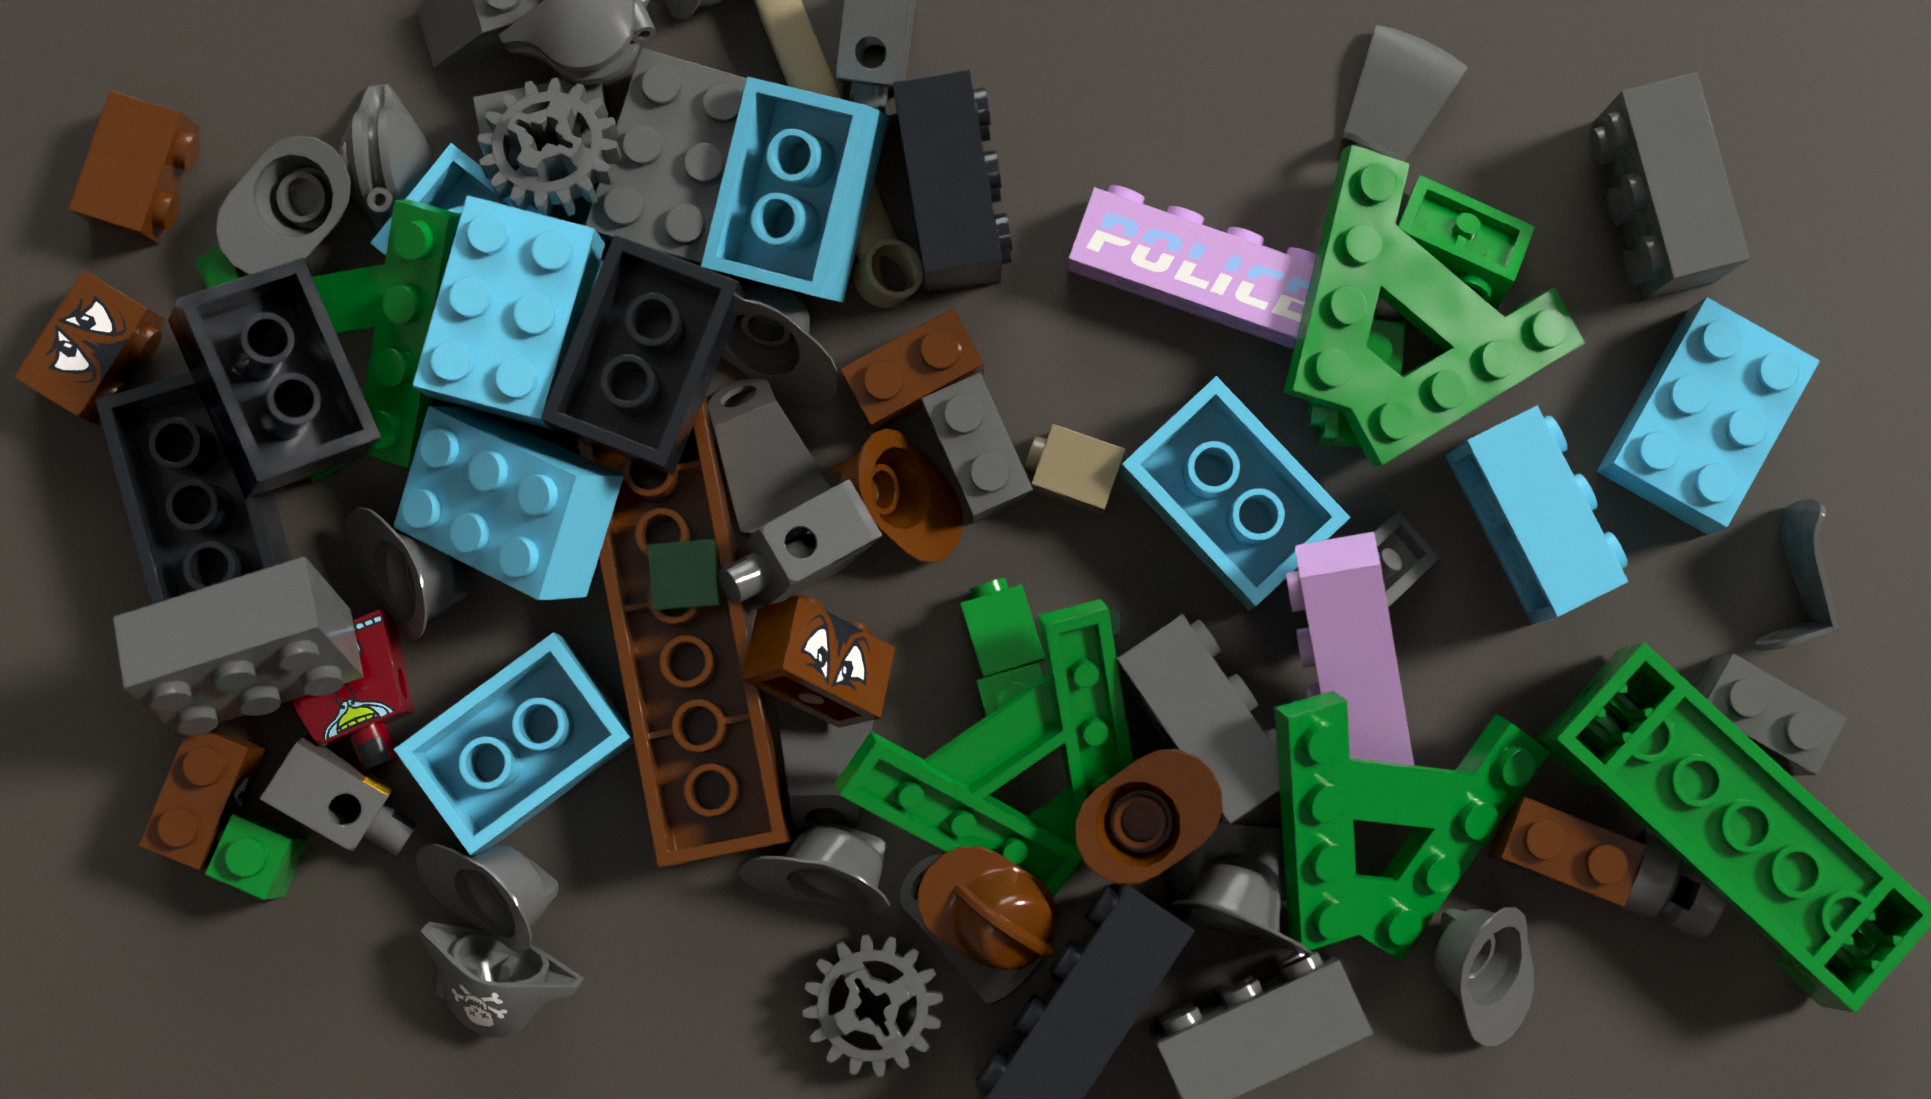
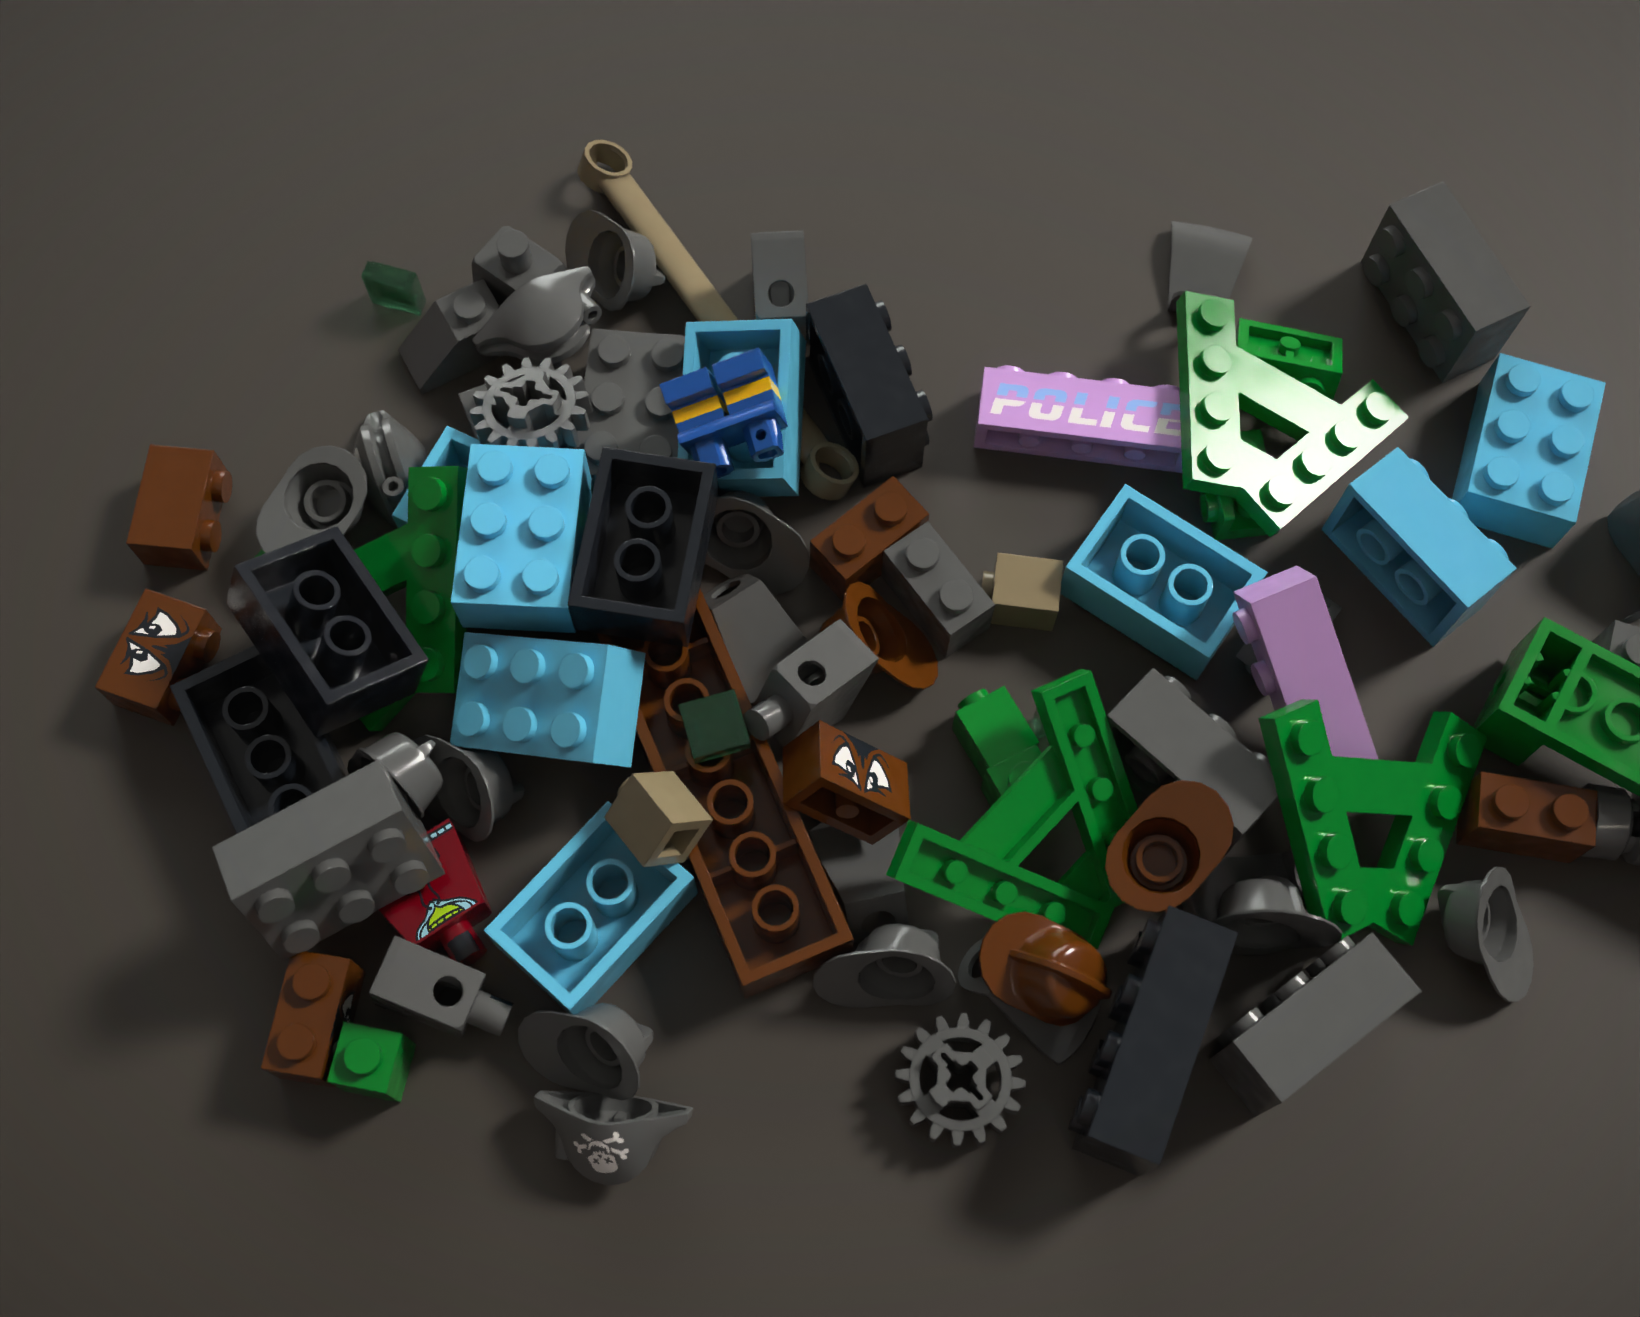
camera: 15 degrees left, 15 degrees down
(334, 548) = (407, 765): none -> dark grey piece
(599, 669) = (657, 818): none -> dark tan brick
(766, 203) = (728, 410): none -> blue hips

